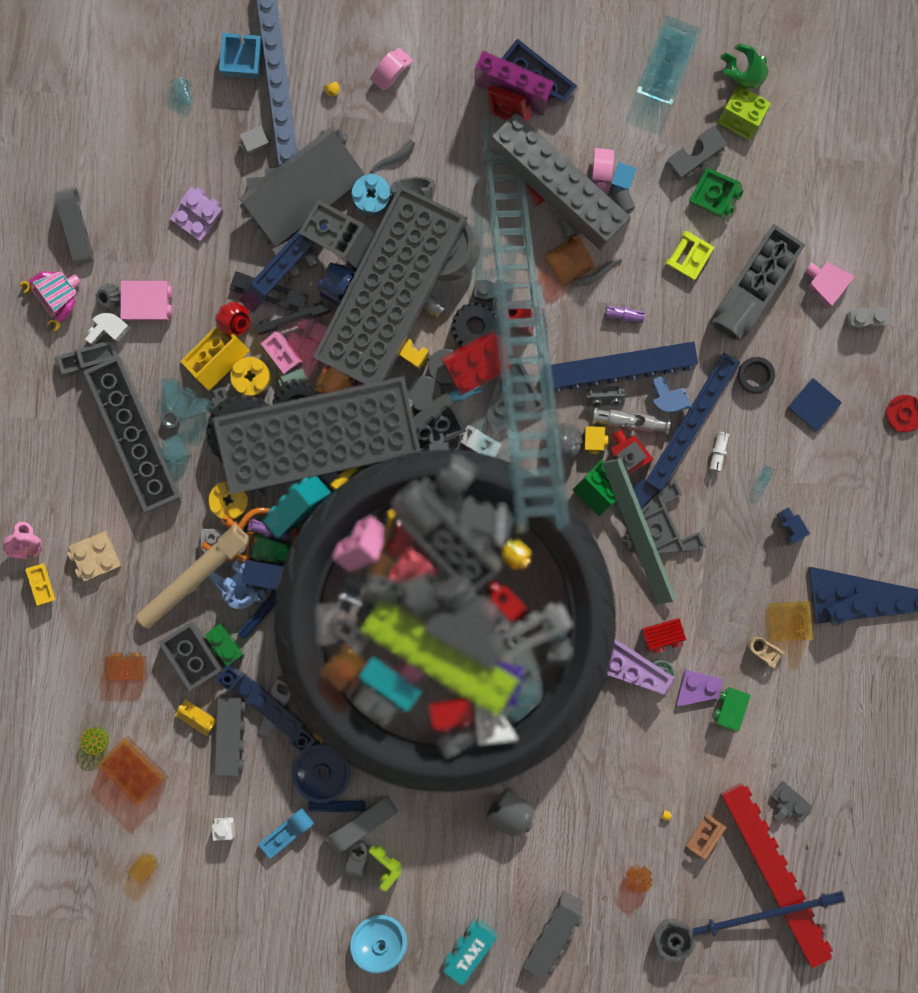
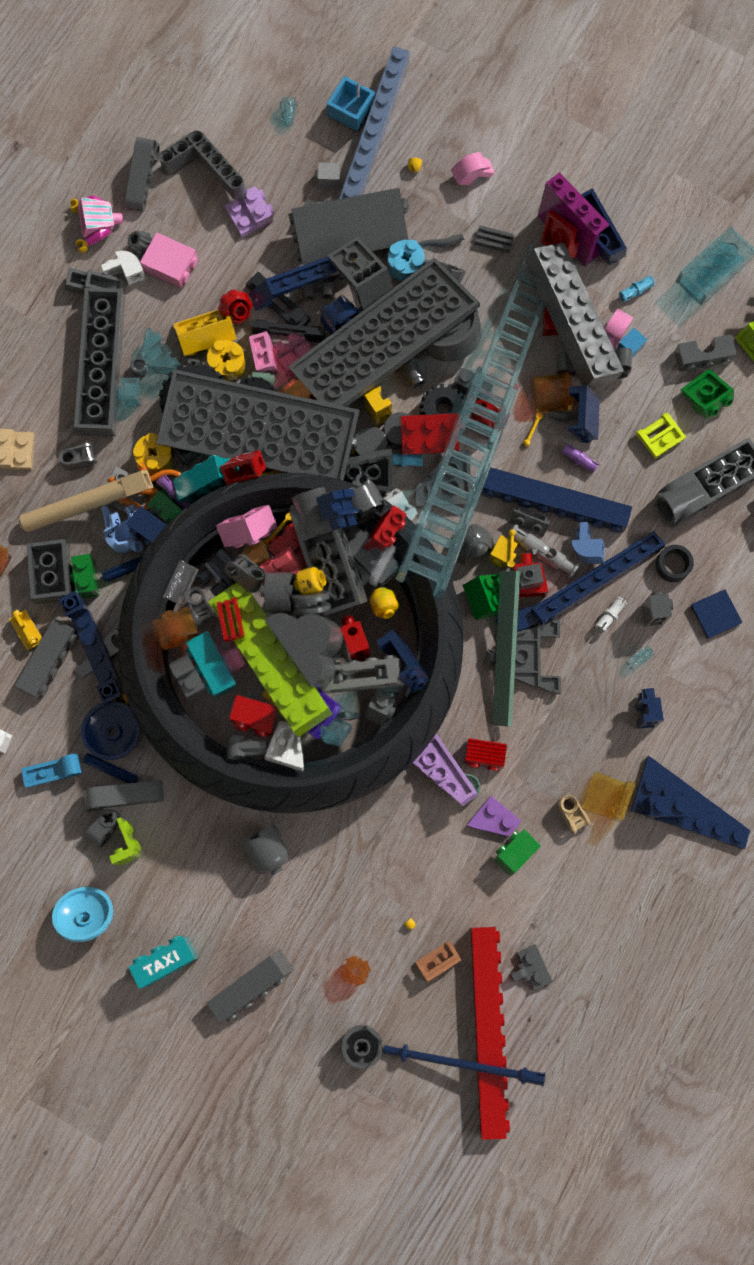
camera: 20 degrees right, 10 degrees down
(134, 181) = (198, 146): none -> dark grey beam
(160, 533) = (79, 457): none -> flat silver piece
(326, 484) = (250, 466): none -> red torso
(380, 626) = (227, 603): none -> red tile
(440, 499) = (337, 508): none -> dark blue hips
(443, 122) = (495, 236): none -> dark grey tile
(445, 573) = (310, 581): none -> yellow head
(488, 493) = (385, 529): none -> red plate
(548, 591) = (414, 675): none -> dark blue panel
(567, 290) = (539, 416): none -> yellow hinge
(603, 117) = (636, 288): none -> medium azure pin
(607, 450) = (510, 564): none -> yellow hinge
(614, 271) = (588, 413): none -> dark blue panel
(759, 428) = (657, 609): none -> dark grey brick

